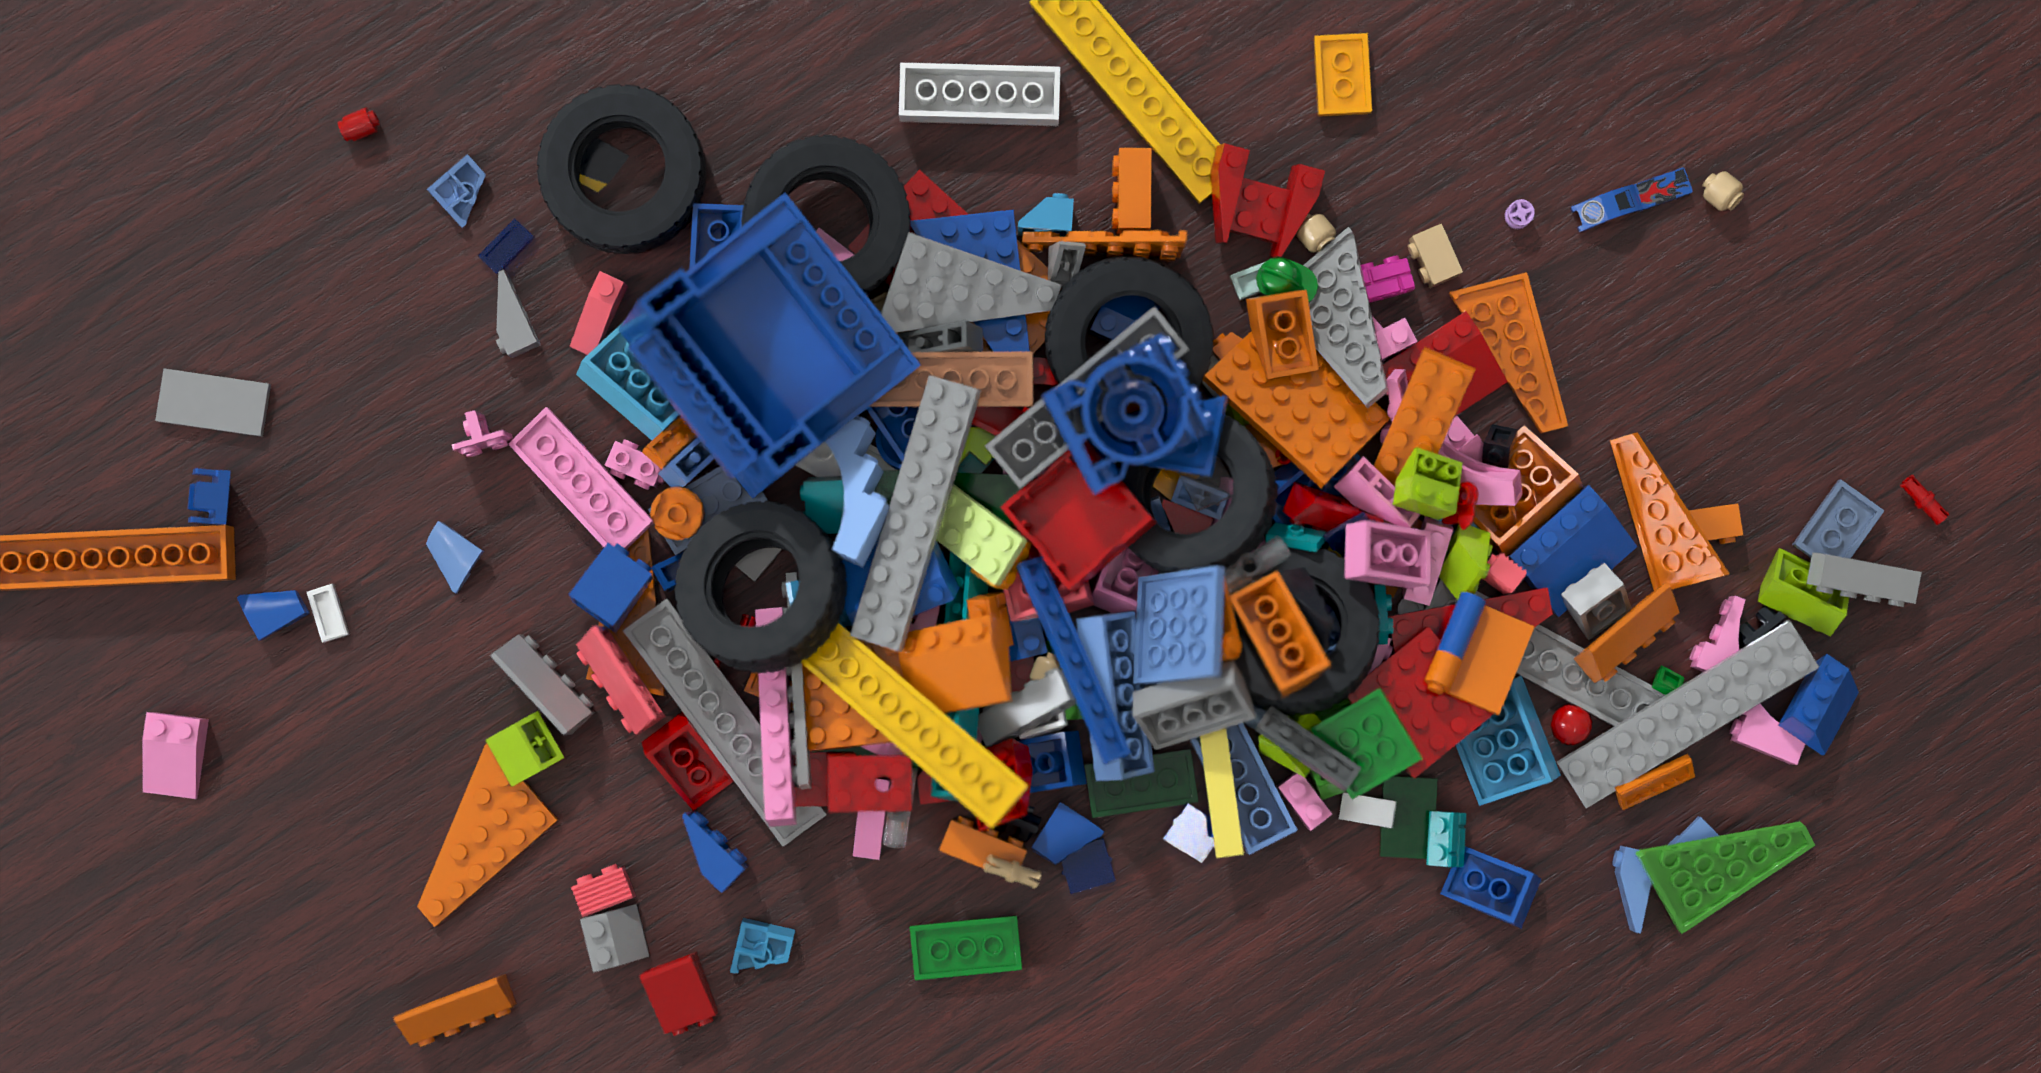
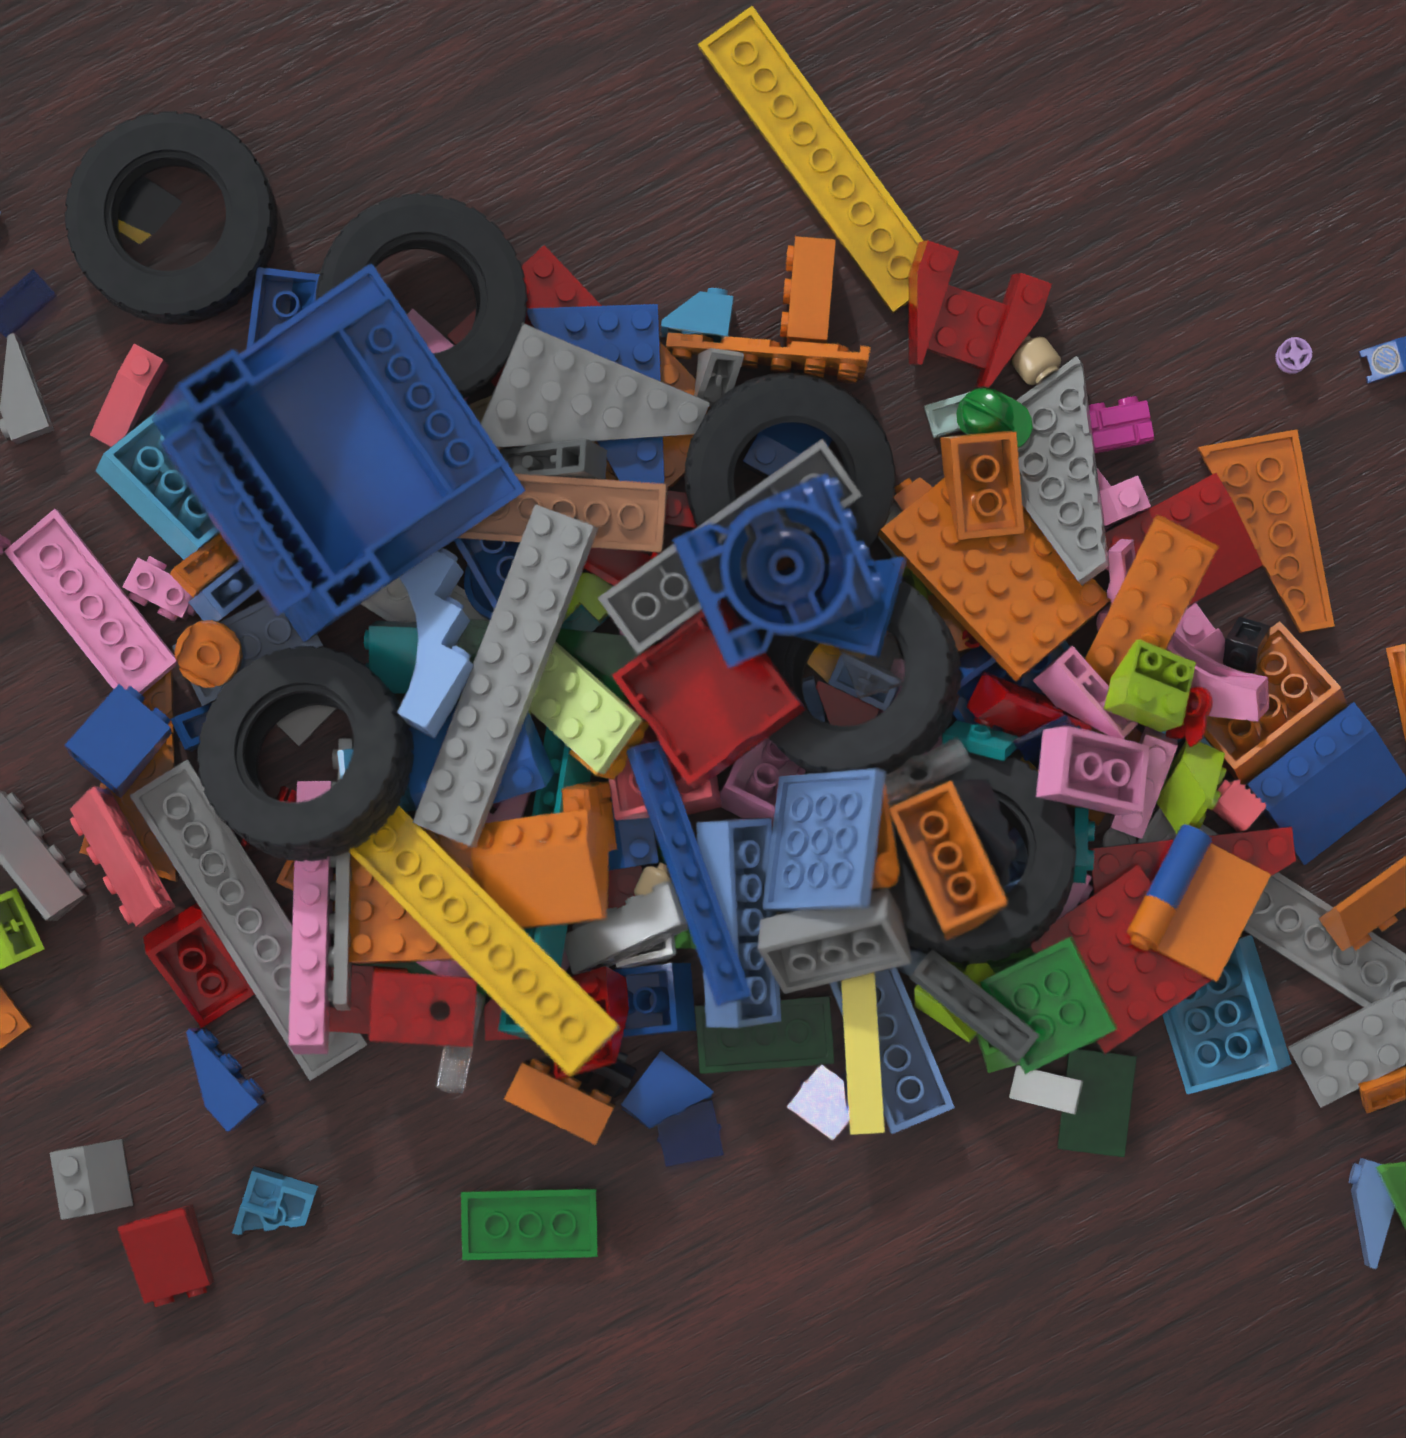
camera: 10 degrees right, 0 degrees up
(603, 891) = (81, 1119): coral brick -> none
(870, 829) = (421, 1066): bright pink slope -> none
(979, 94) = (626, 156): white brick -> none
(1012, 871) = (593, 1132): tan pin -> none
(1304, 800) = (966, 1071): bright pink brick -> none
(1342, 74) = (1084, 164): light orange plate -> none
(1434, 256) = (1182, 400): tan brick -> none
(1446, 839) = (1141, 1133): teal brick -> none
(1492, 887) = (1194, 1196): blue slope -> none
(1571, 724) = (1310, 1001): red hair -> none
(1596, 600) = (1353, 848): light grey slope -> none

